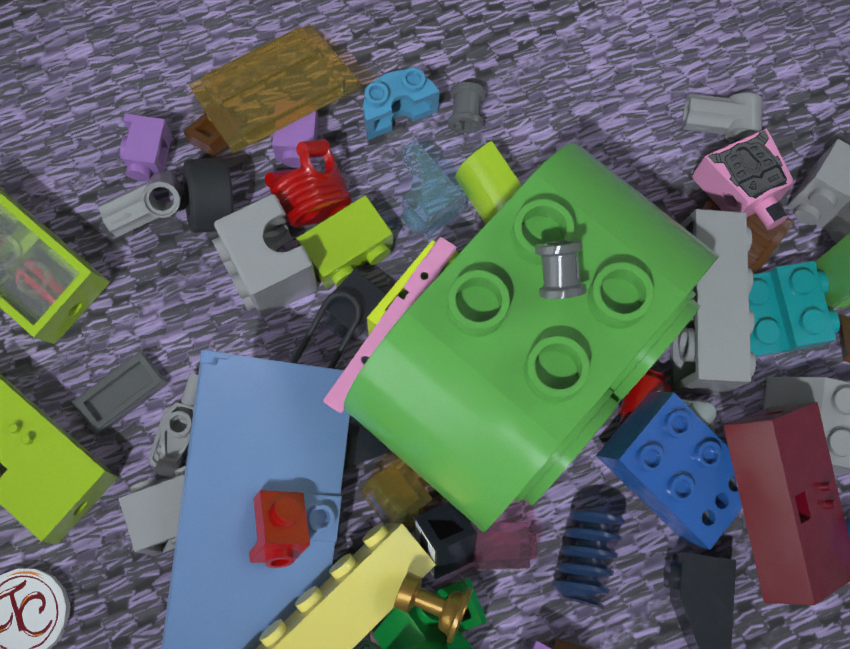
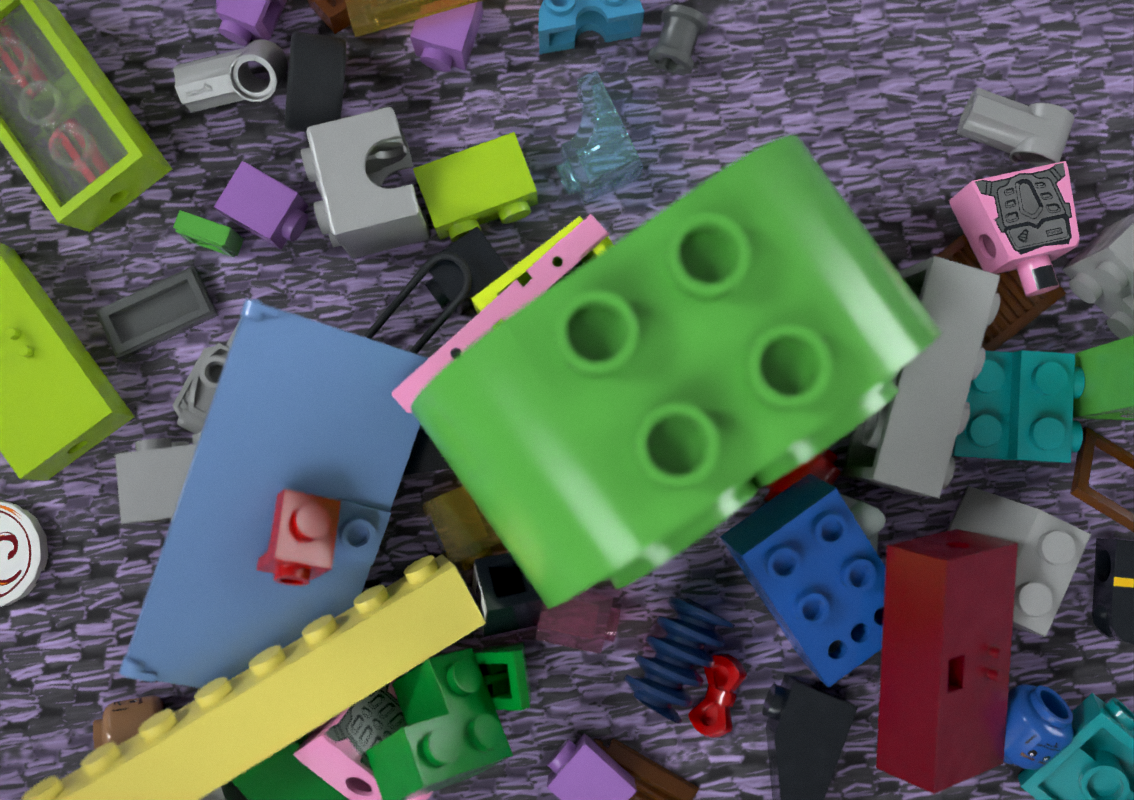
camera: 15 degrees right, 10 degrees up
(149, 322) = (208, 234): none -> bright green tile
(187, 292) = (263, 206): none -> medium lavender brick
(306, 193) = (440, 114): red piece -> none
(448, 610) = (483, 687): pearl gold piece -> none
(487, 181) = (679, 149): lime brick -> none
(560, 269) = (713, 318): dark grey bush -> none
(627, 598) = (713, 714): none -> red piece

